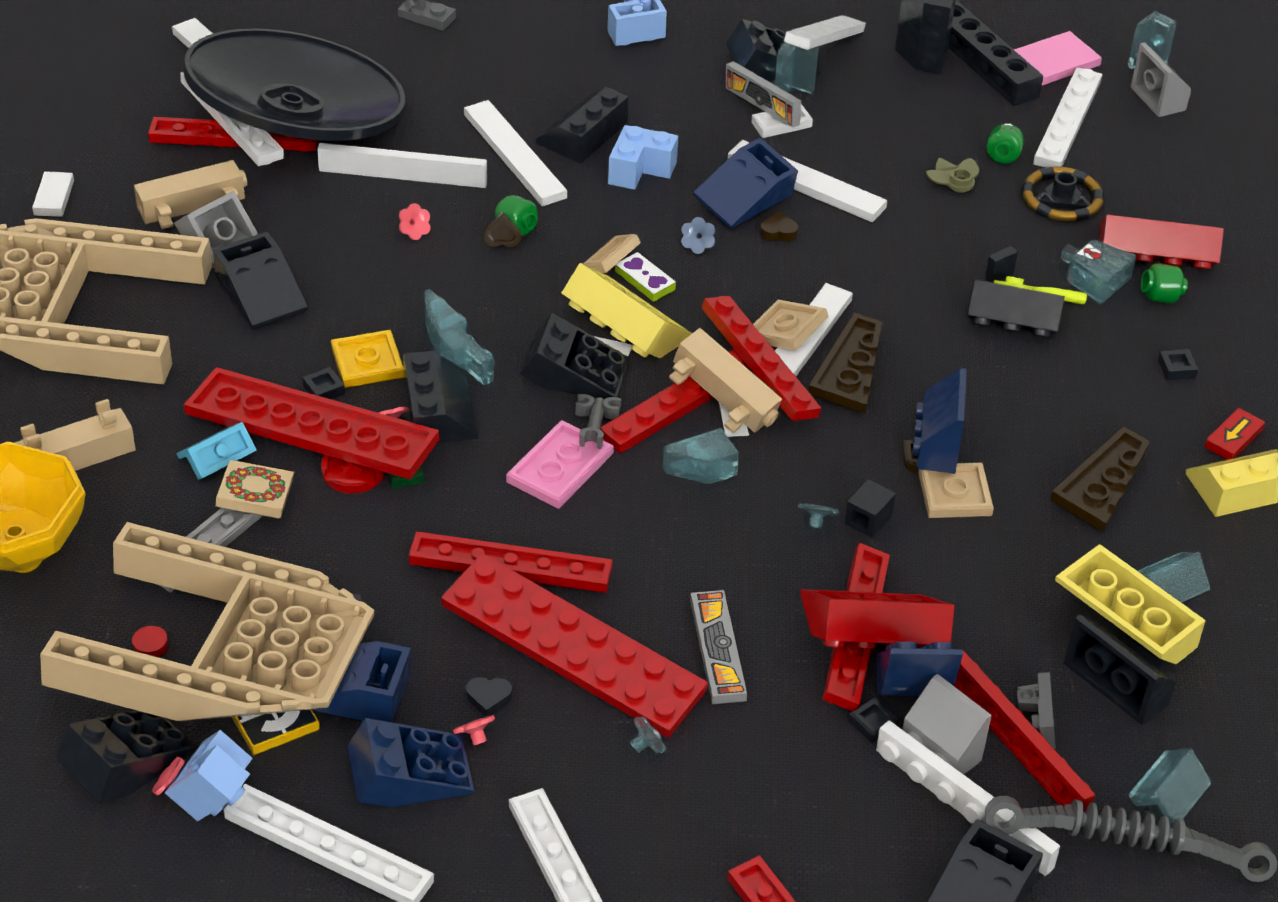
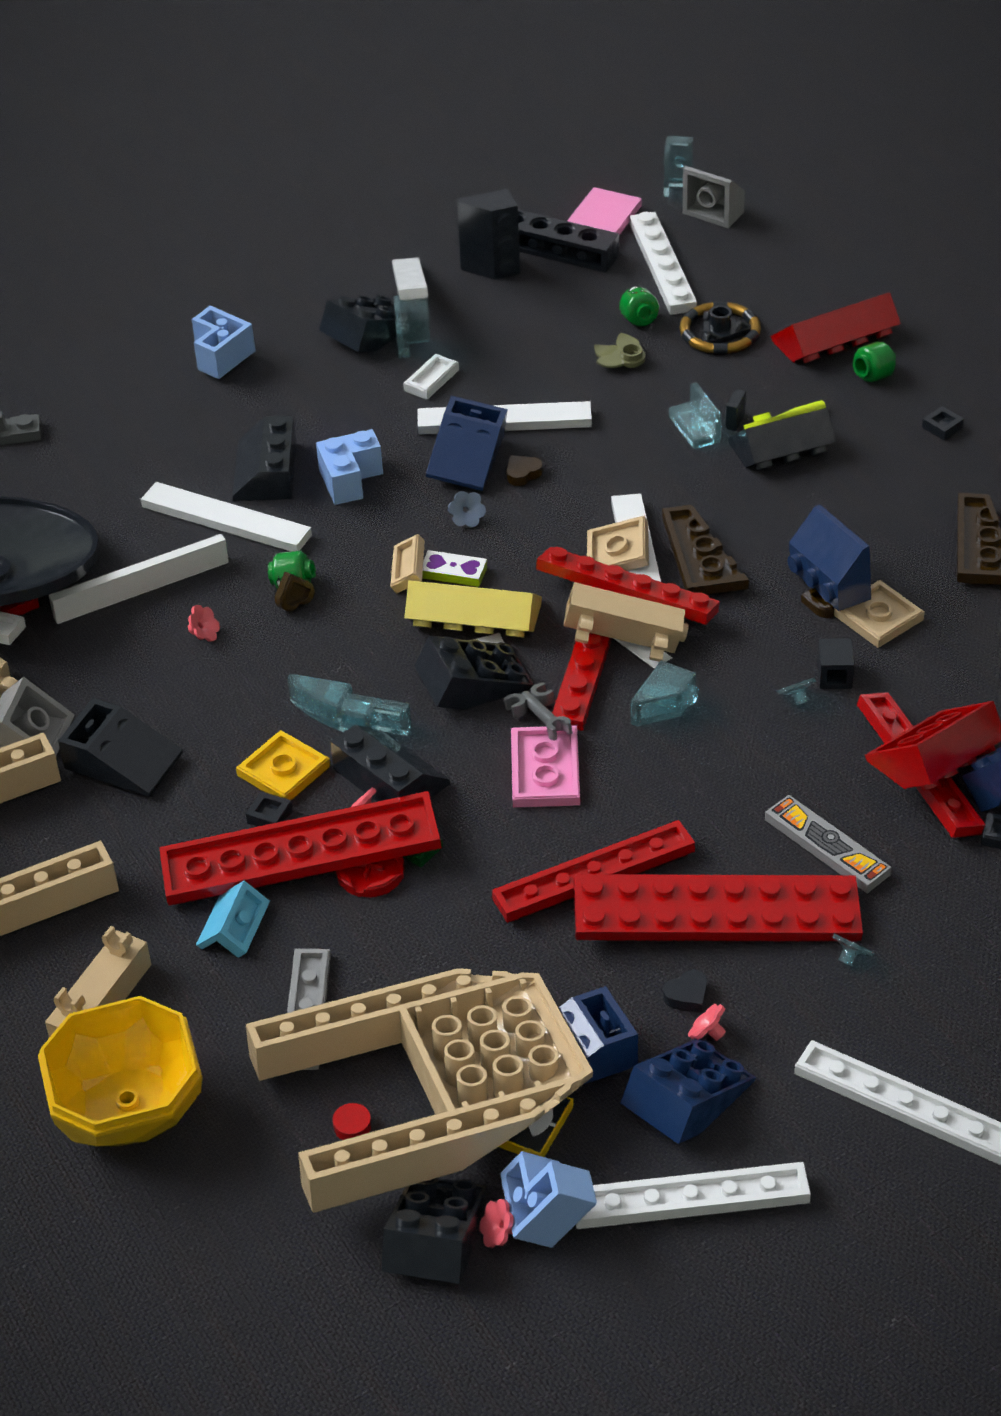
camera: 30 degrees left, 0 degrees up
(254, 489) = (309, 934): tan tile -> none
(763, 94) = (402, 359): light grey tile -> none
(959, 259) = (697, 419): none -> clear light blue panel
(1098, 268) = (811, 375): clear light blue torso -> none

